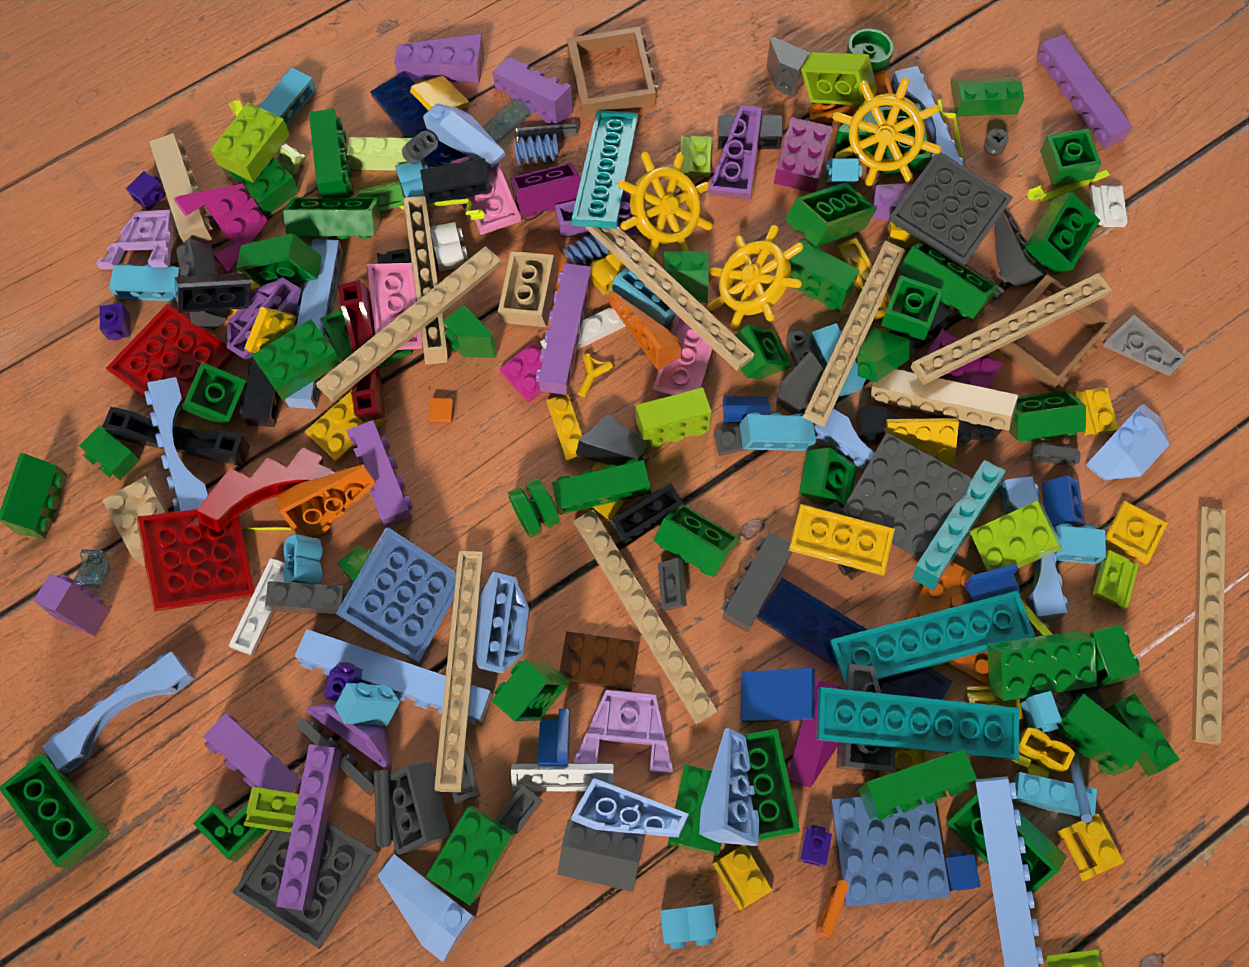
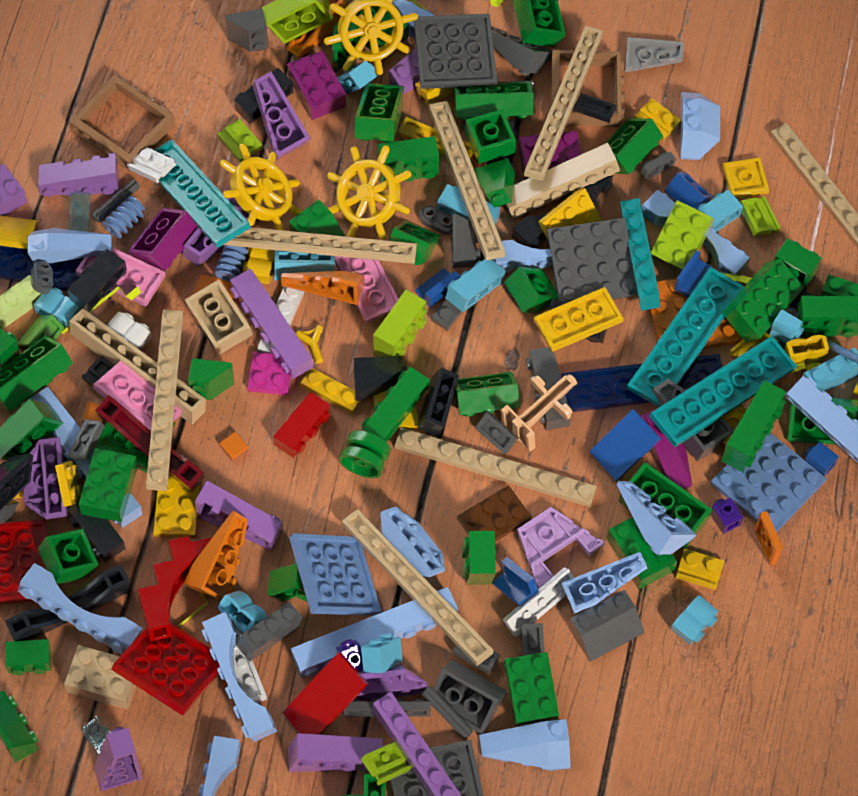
camera: 45 degrees left, 5 degrees down
(218, 663) = (223, 636): none -> light blue arch
(288, 700) = (325, 696): none -> red tile
(318, 307) = (86, 440): none -> dark grey plate
(511, 438) = (302, 425): none -> red brick
(598, 120) = (151, 164): none -> white plate
(742, 593) = (521, 424): none -> light nougat piece
(1039, 355) = (595, 108): none -> black tile

